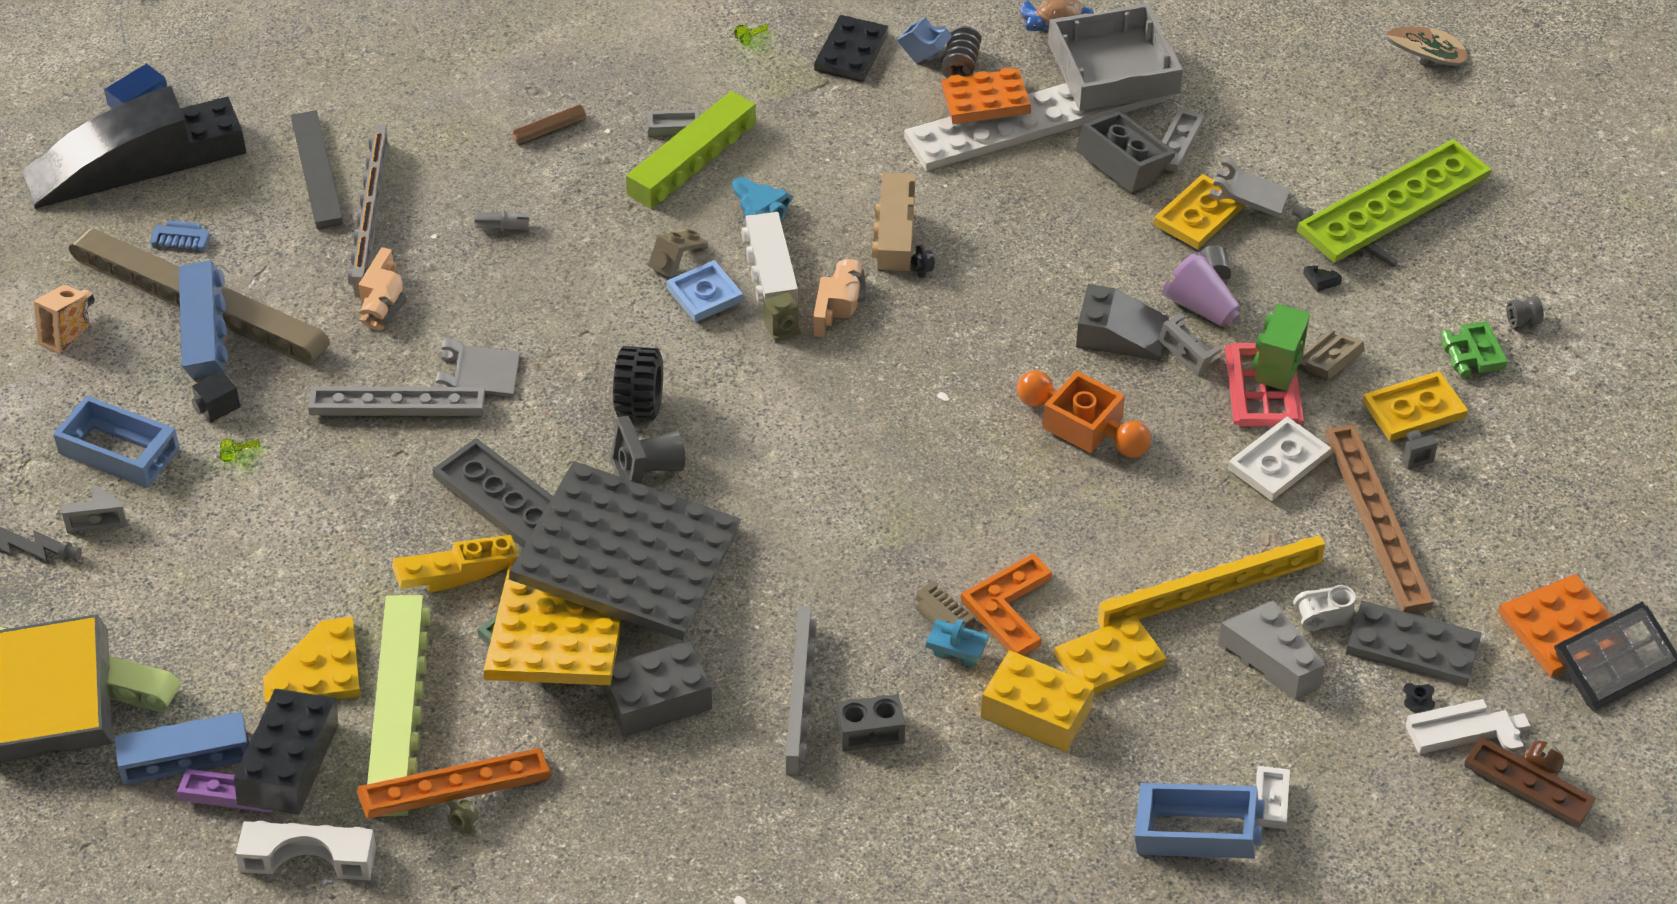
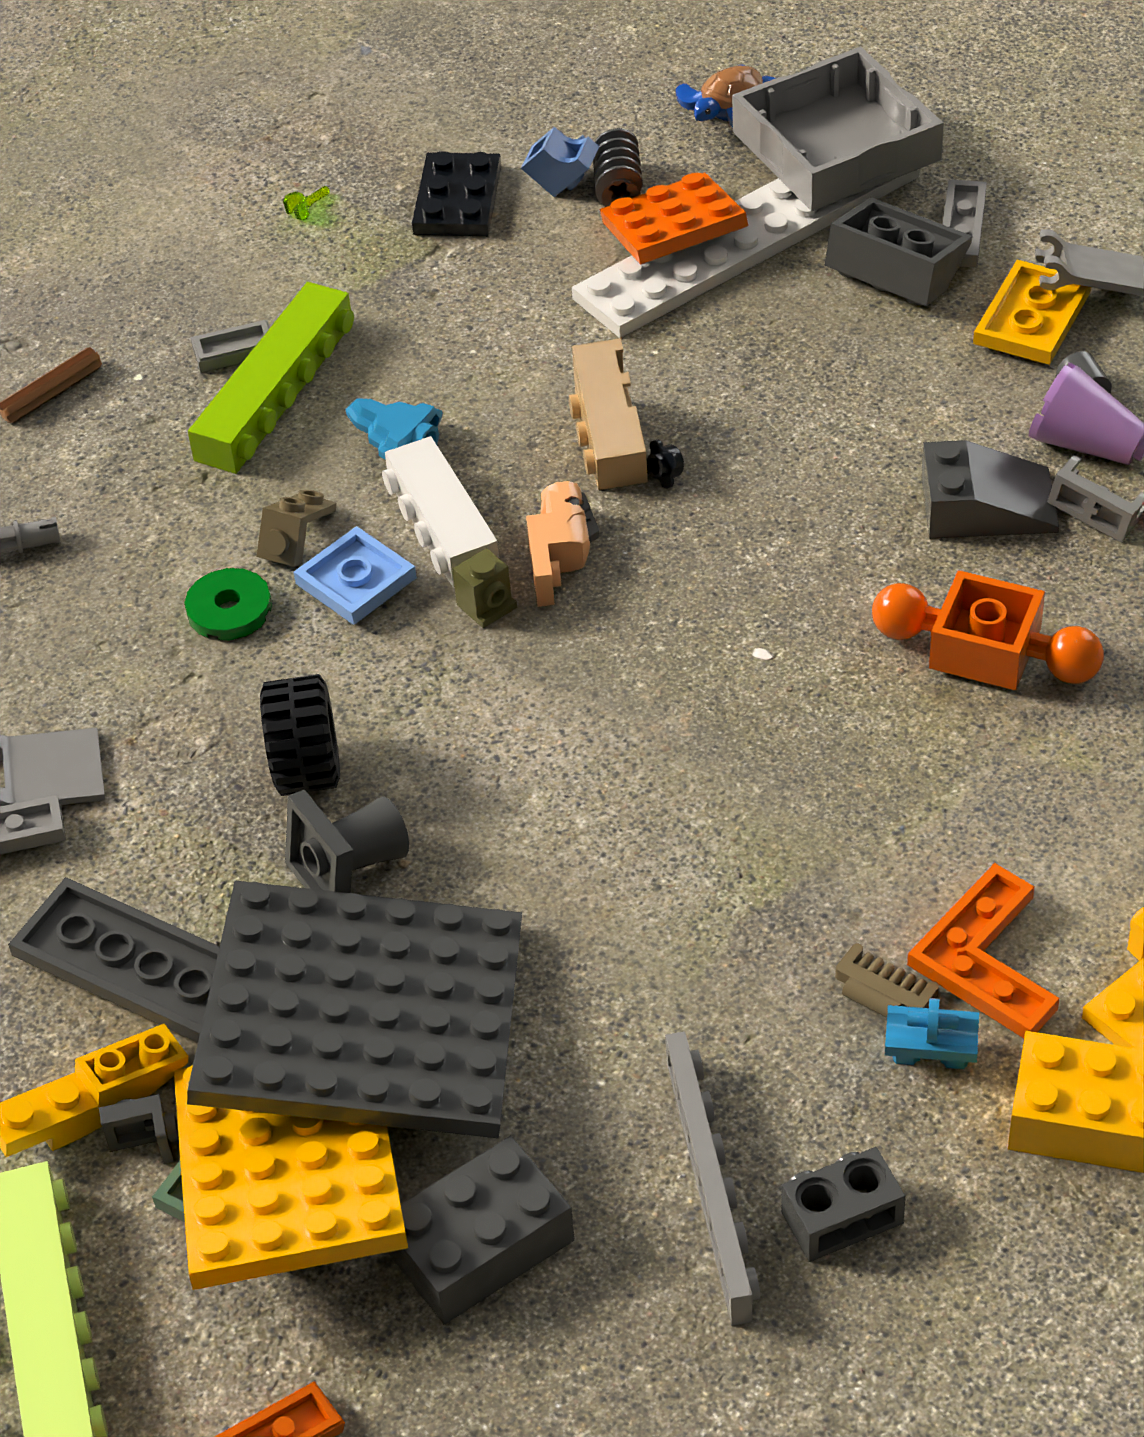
camera: 10 degrees left, 0 degrees up
(480, 587) = (139, 1123): none -> dark grey bracket
(621, 280) = (224, 586): none -> green tile

